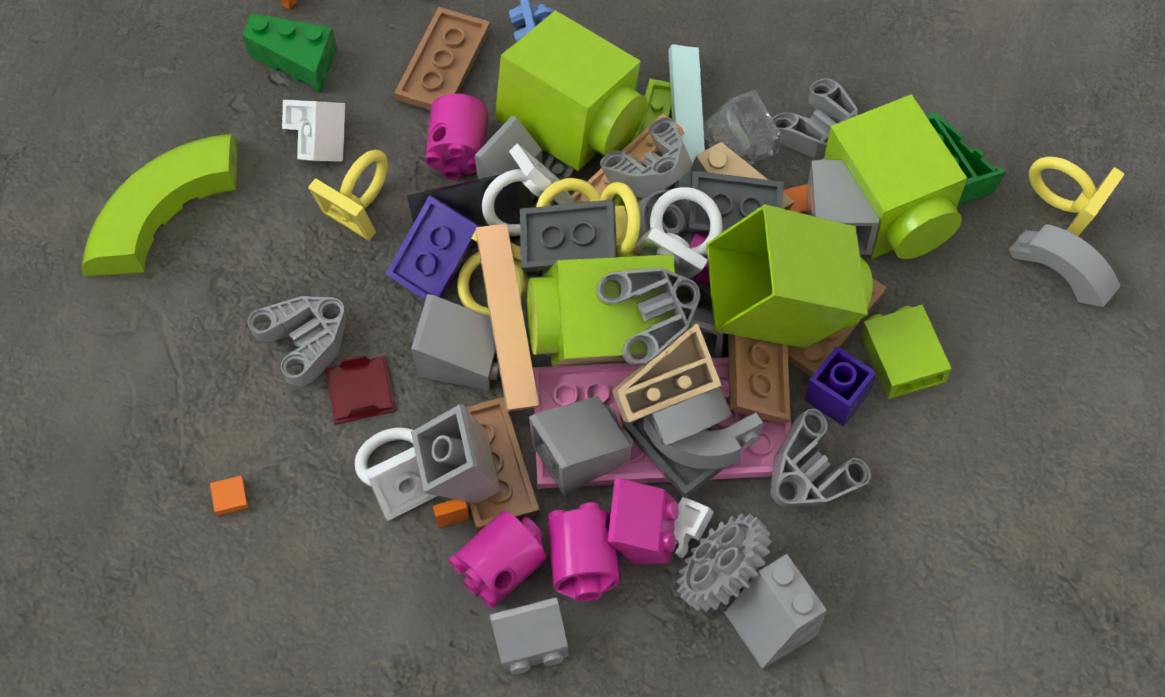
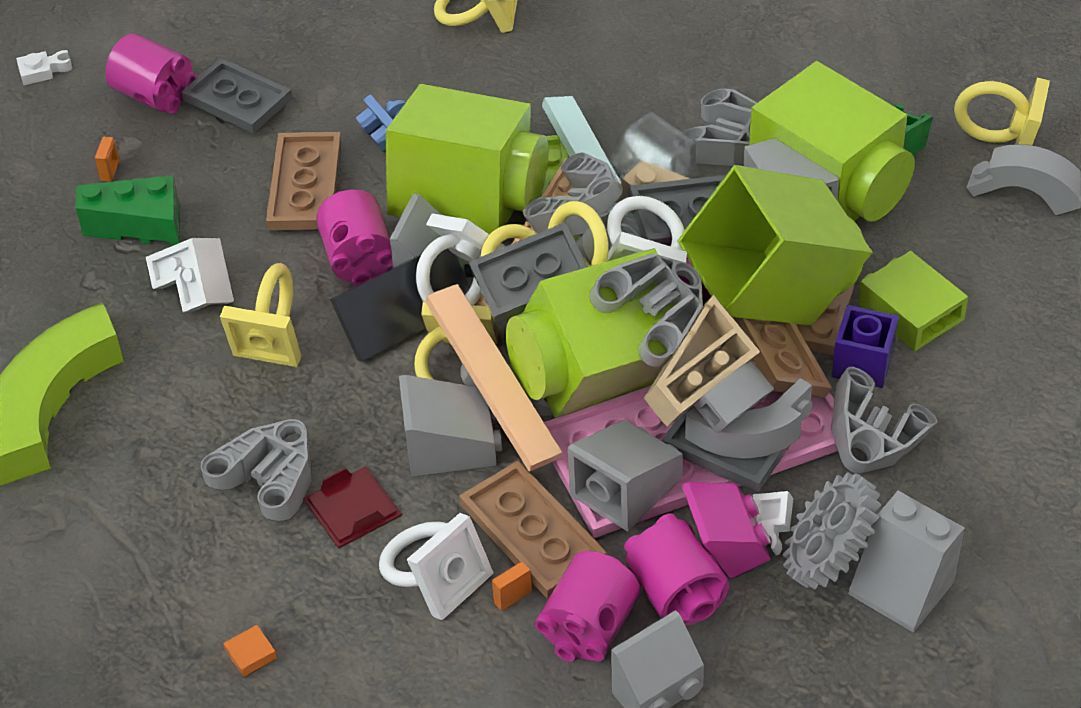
camera: 20 degrees left, 15 degrees down
(433, 249) = (378, 345): dark purple plate -> none
(455, 457) = (505, 510): light grey slope -> none

